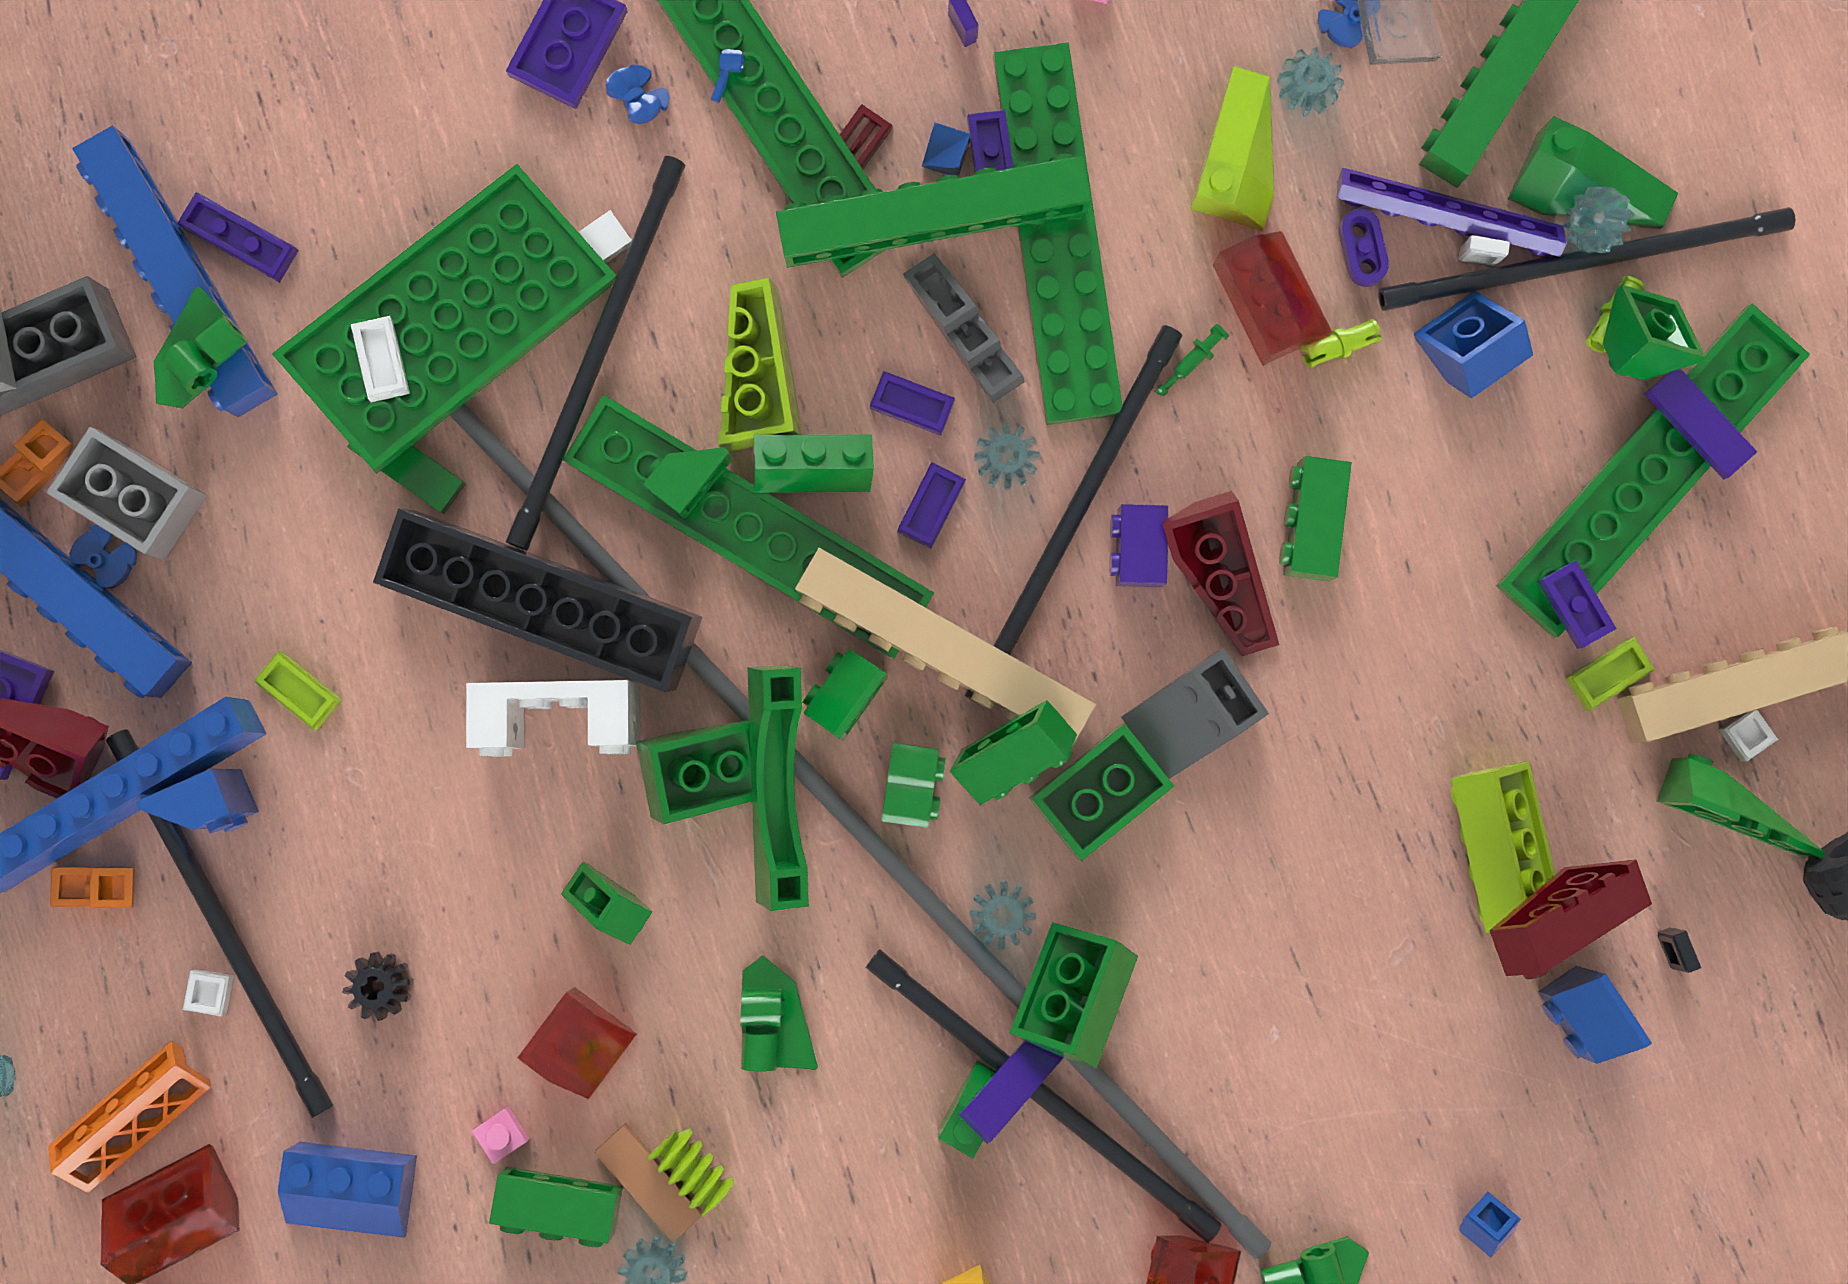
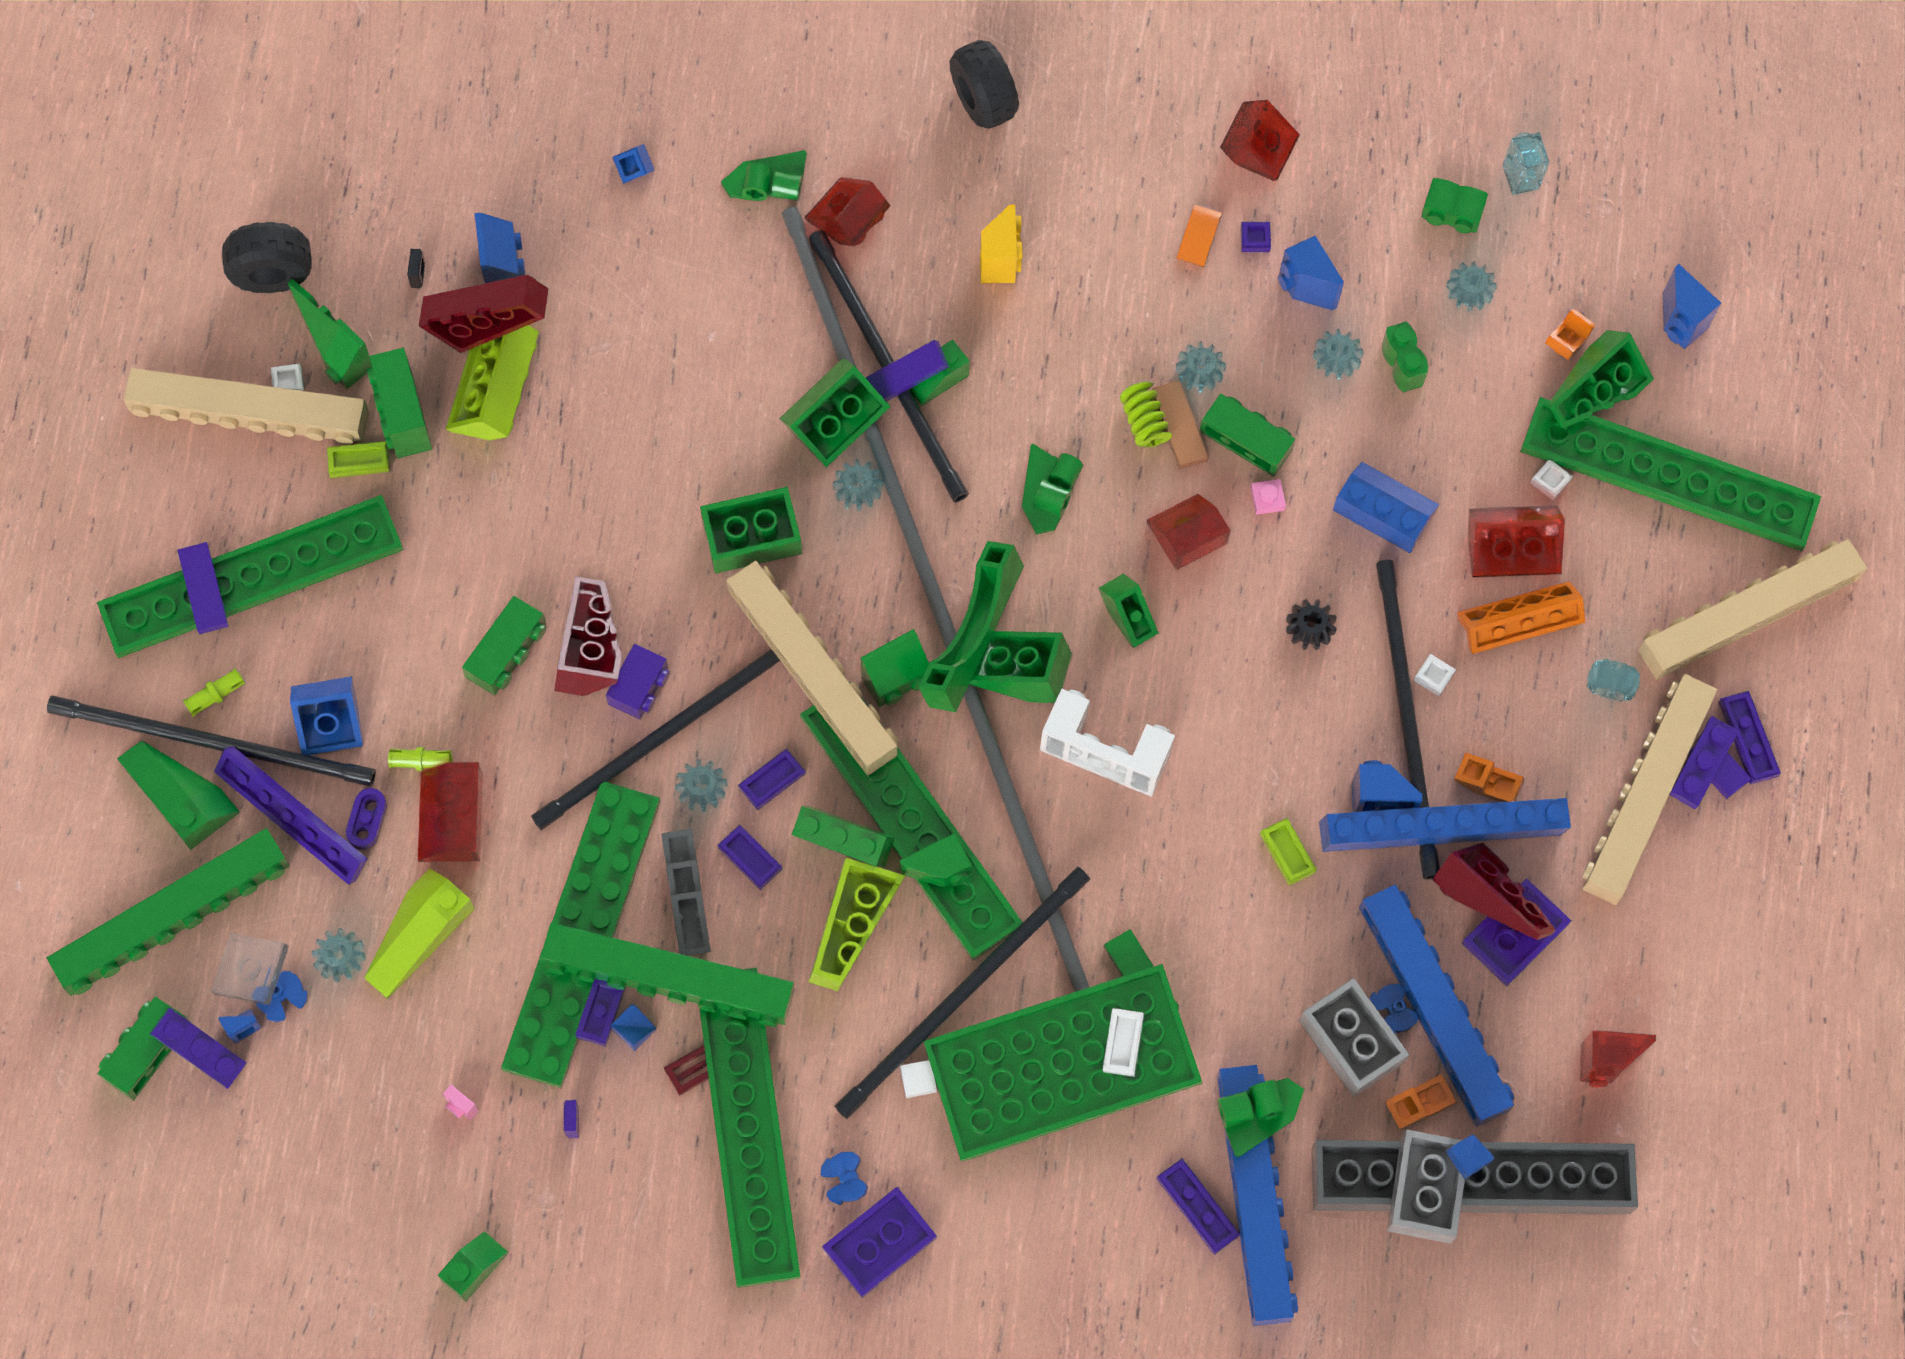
camera: 155 degrees left, 15 degrees down
(537, 600) = (1084, 825): black brick -> none
(730, 61) = (763, 1159): blue hand -> none
(911, 785) = (879, 594): green brick -> none
(1014, 753) = (798, 574): green brick -> none
(1194, 358) = (530, 796): green piece -> none
(1195, 714) = (659, 553): dark grey slope -> none
(1483, 251) = (282, 776): white tile -> none
(1577, 605) = (360, 505): dark purple plate -> none
(1598, 219) = (193, 753): clear light blue gear -> none
(1603, 757) = (398, 403): none -> green brick
(1648, 335) = (203, 660): green slope -> none

